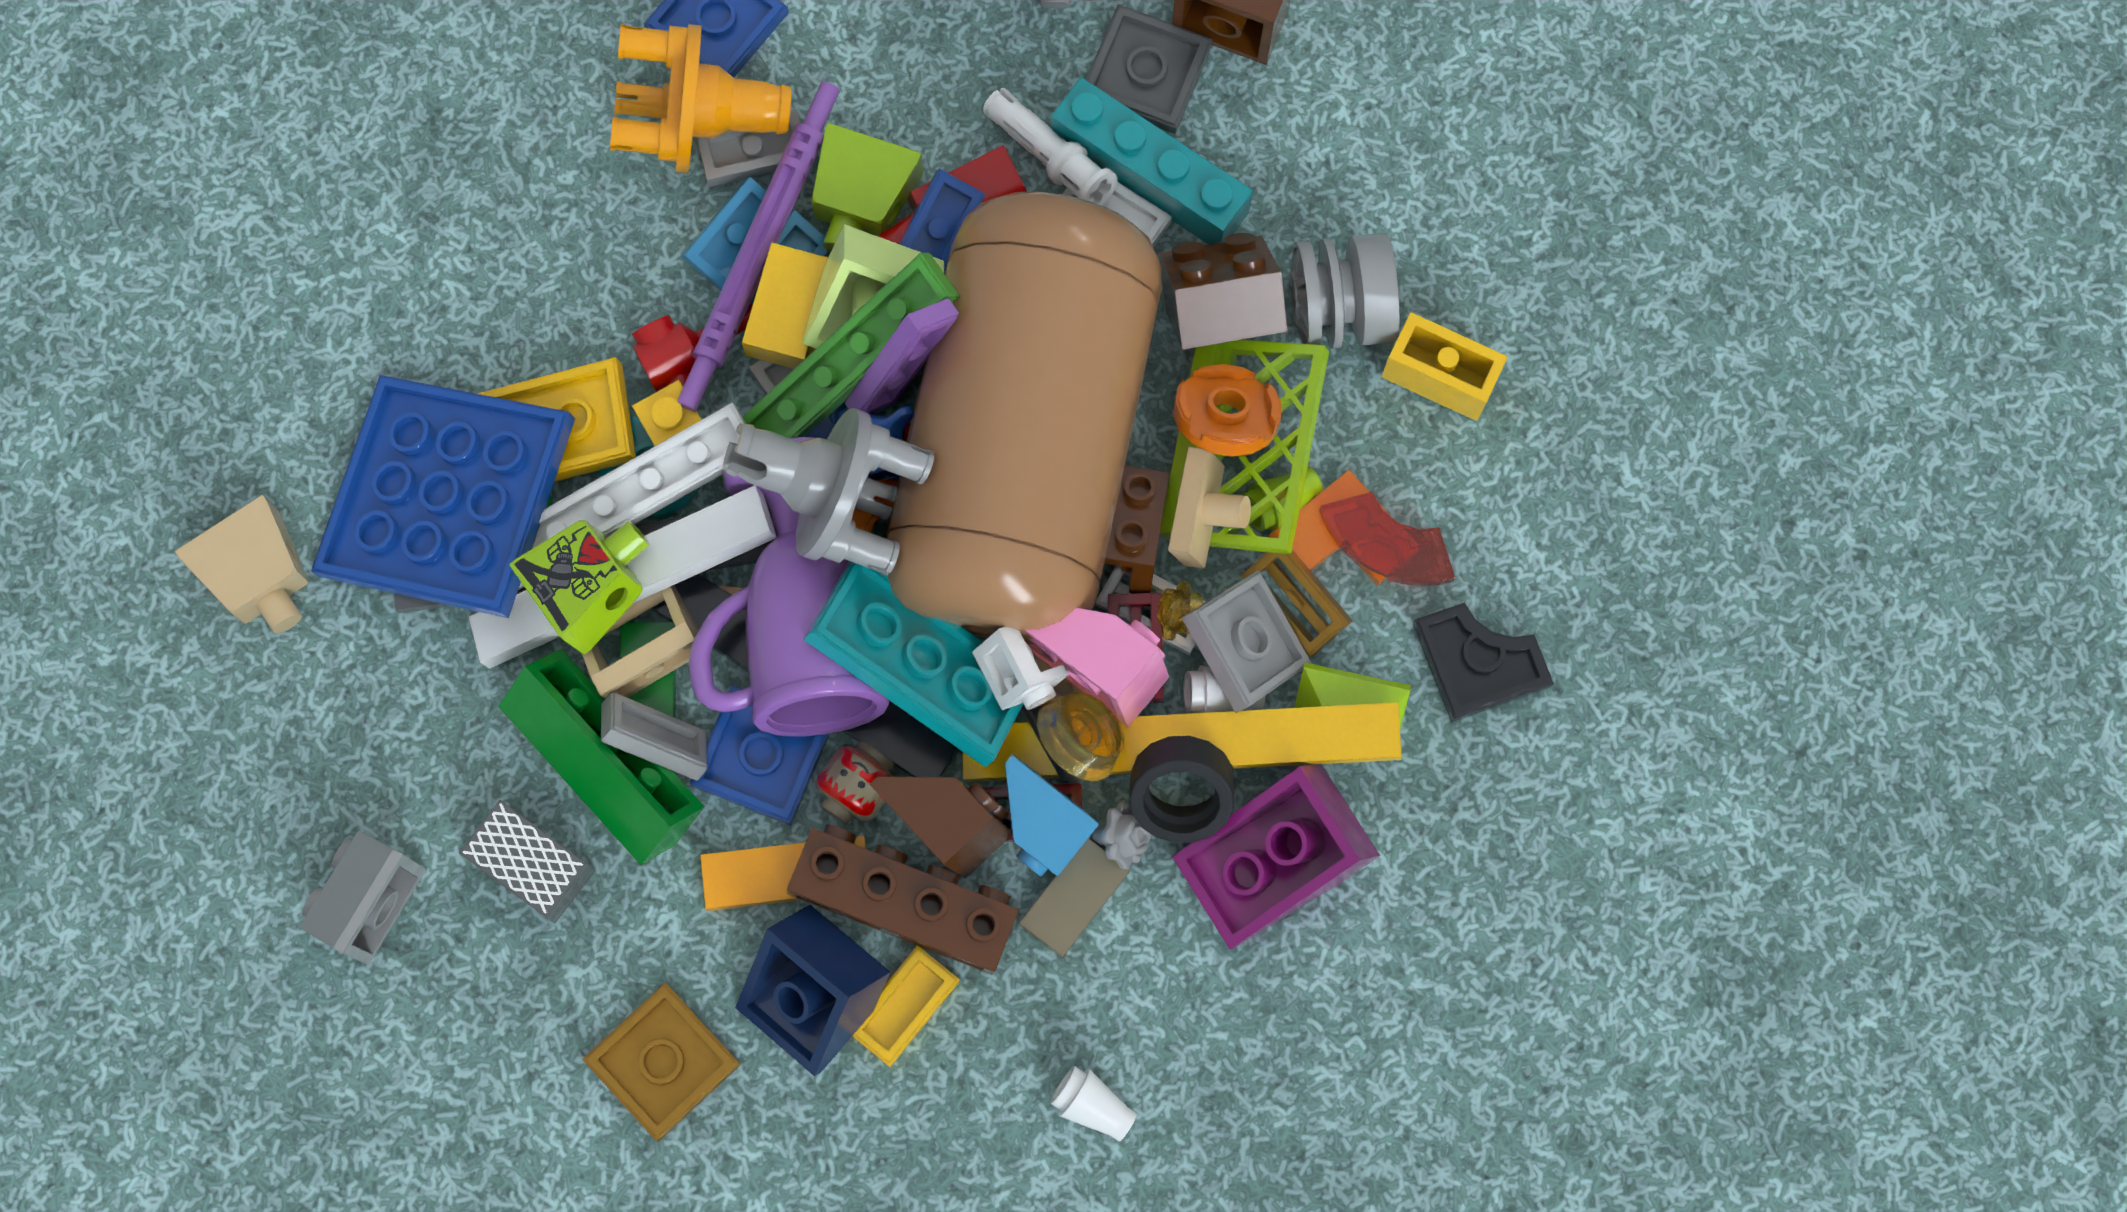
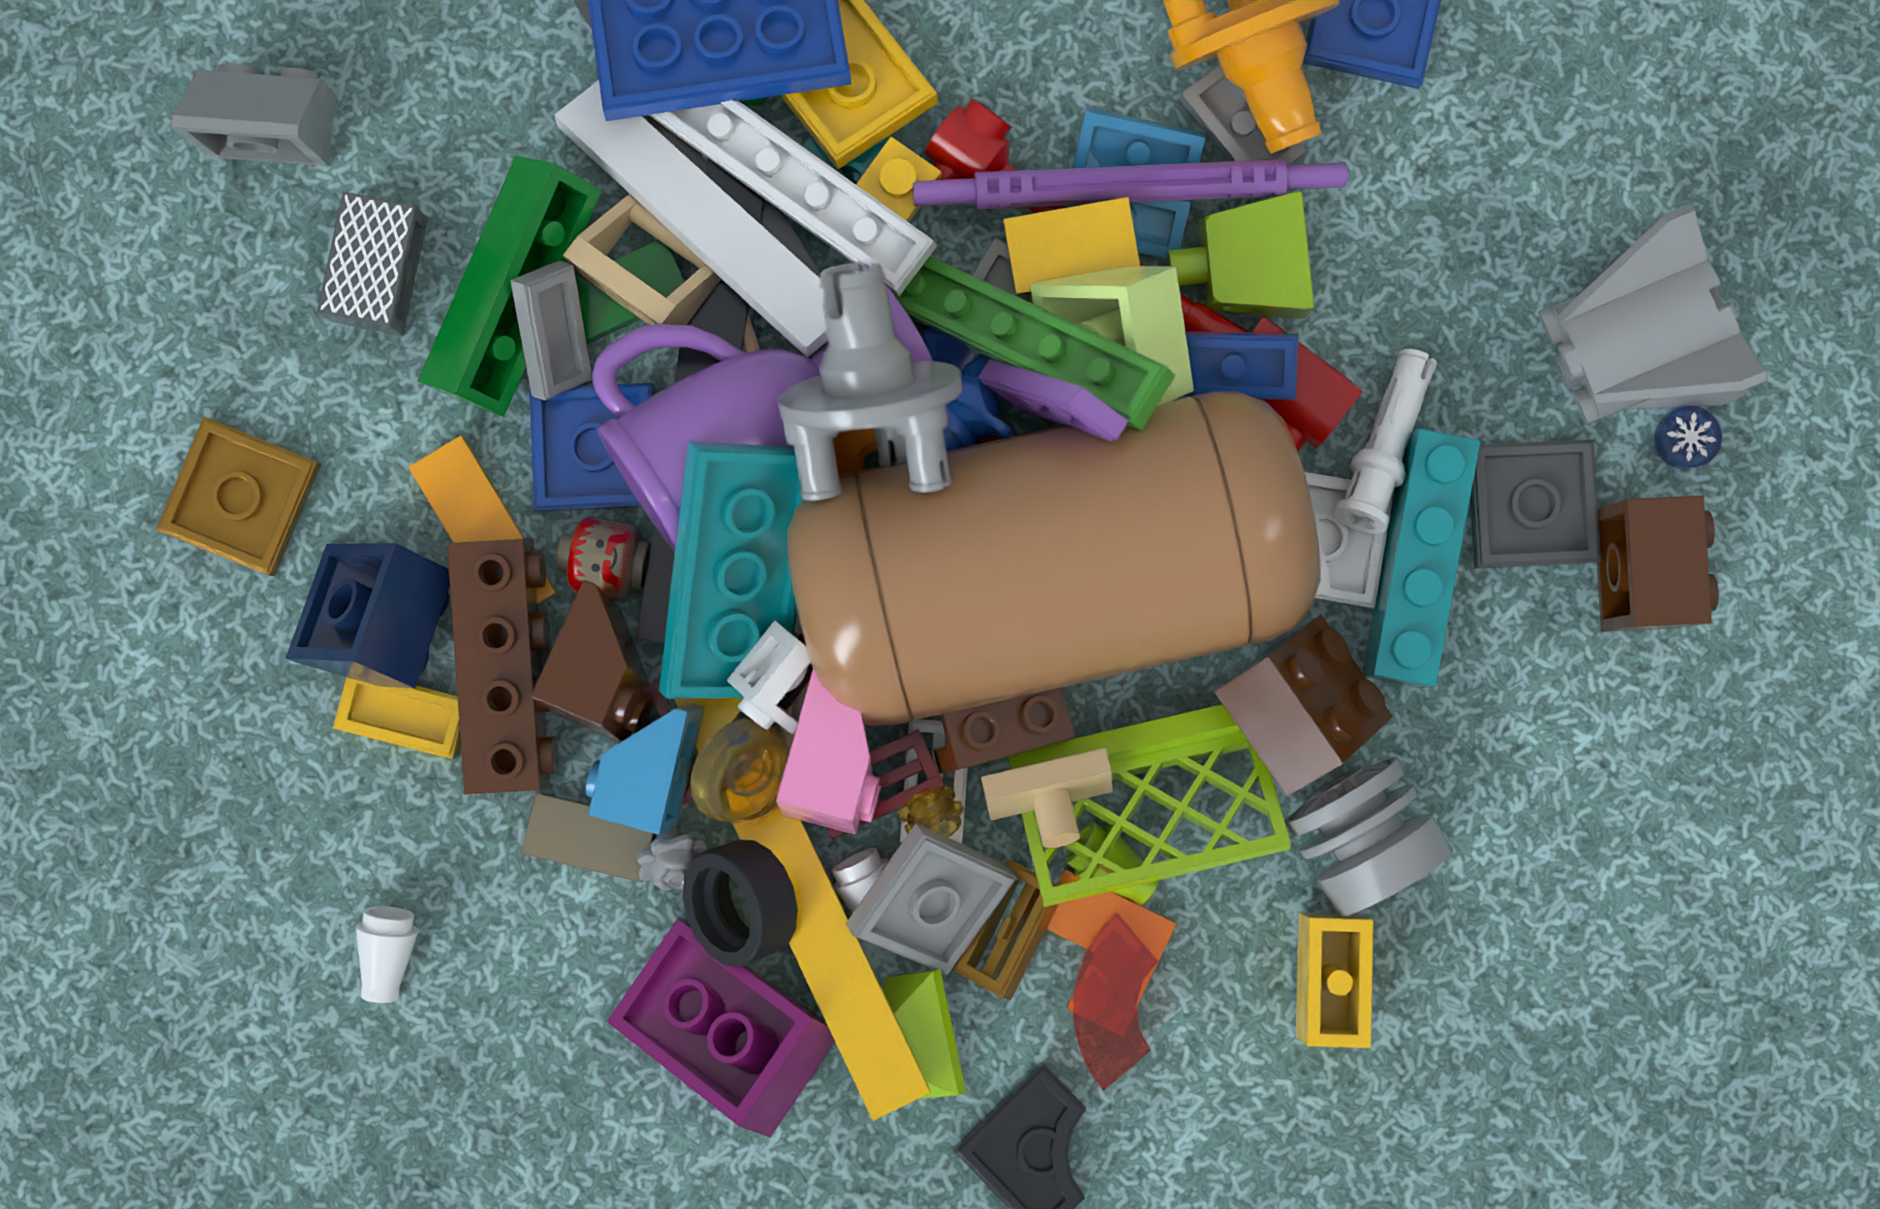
camera: 65 degrees right, 10 degrees up
(583, 579) = (671, 178): lime torso -> none
(1226, 432) = (1136, 777): orange tile -> none

